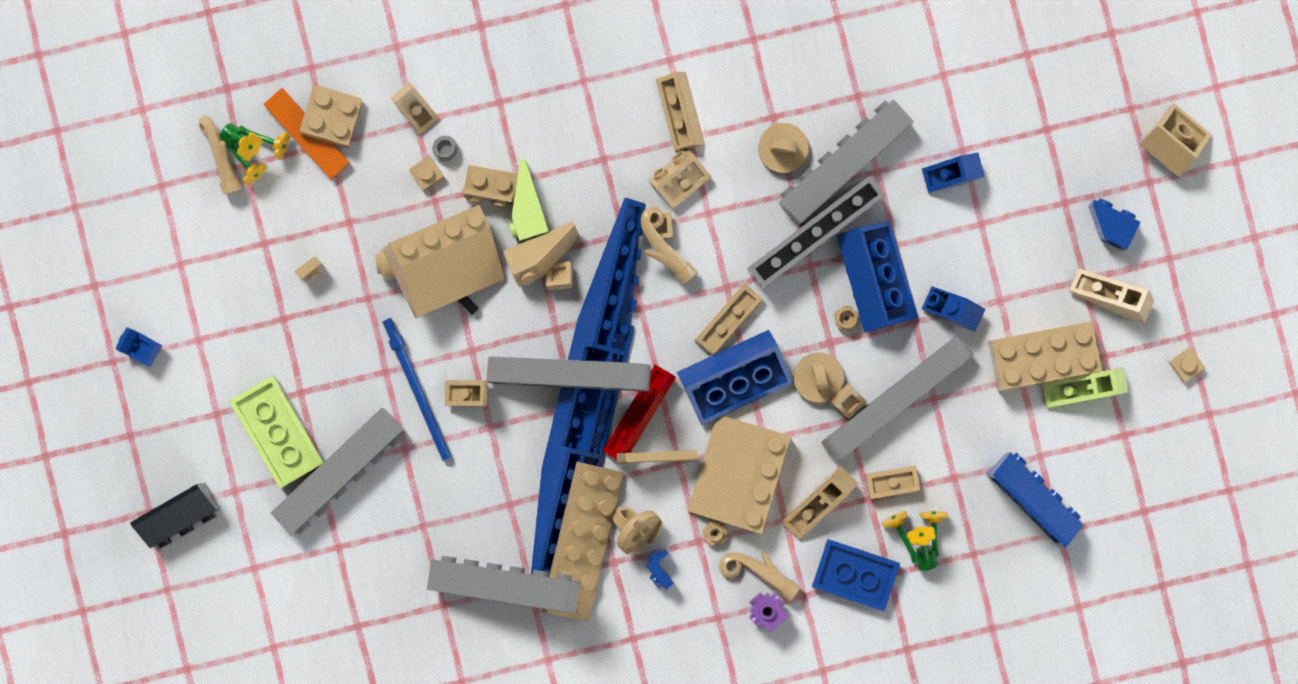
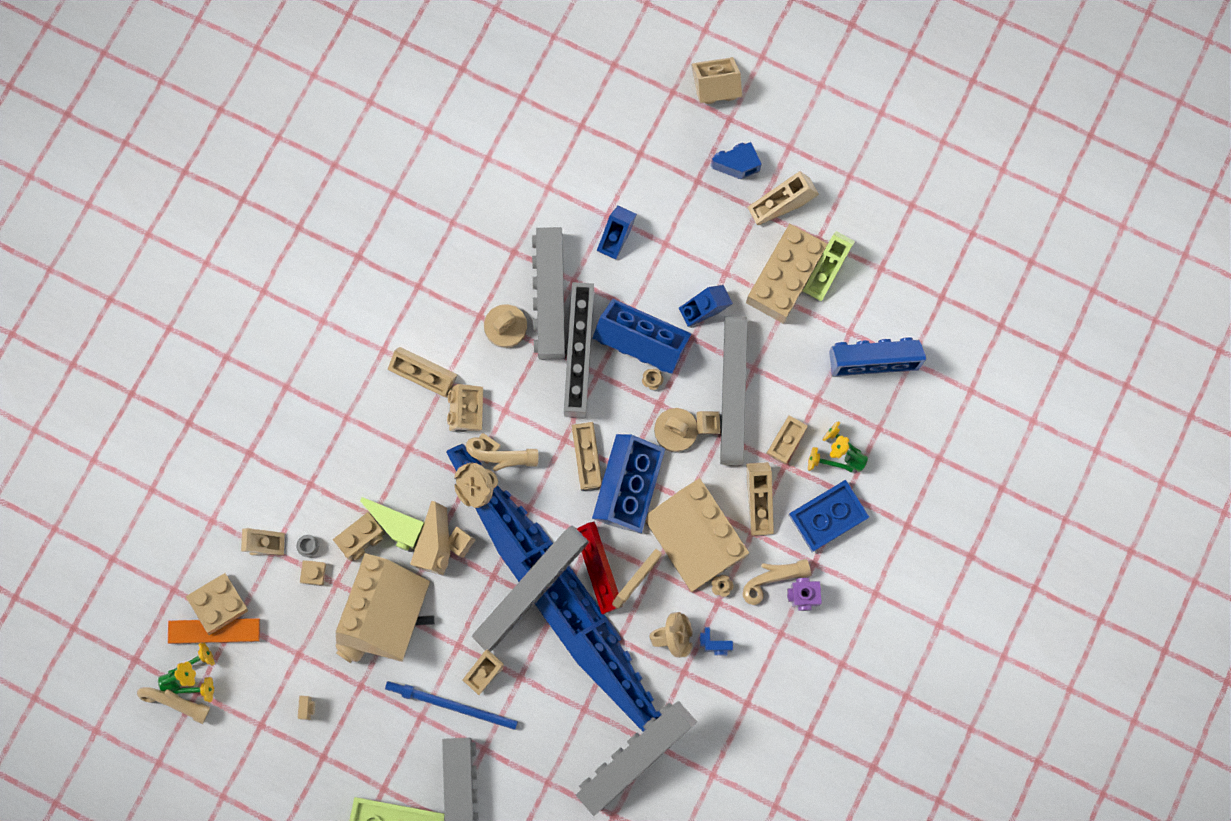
camera: 55 degrees left, 10 degrees down
(586, 532) = (647, 671): tan plate -> none
(617, 248) = (474, 484): none -> tan tile
(1187, 364) = (868, 191): tan plate -> none

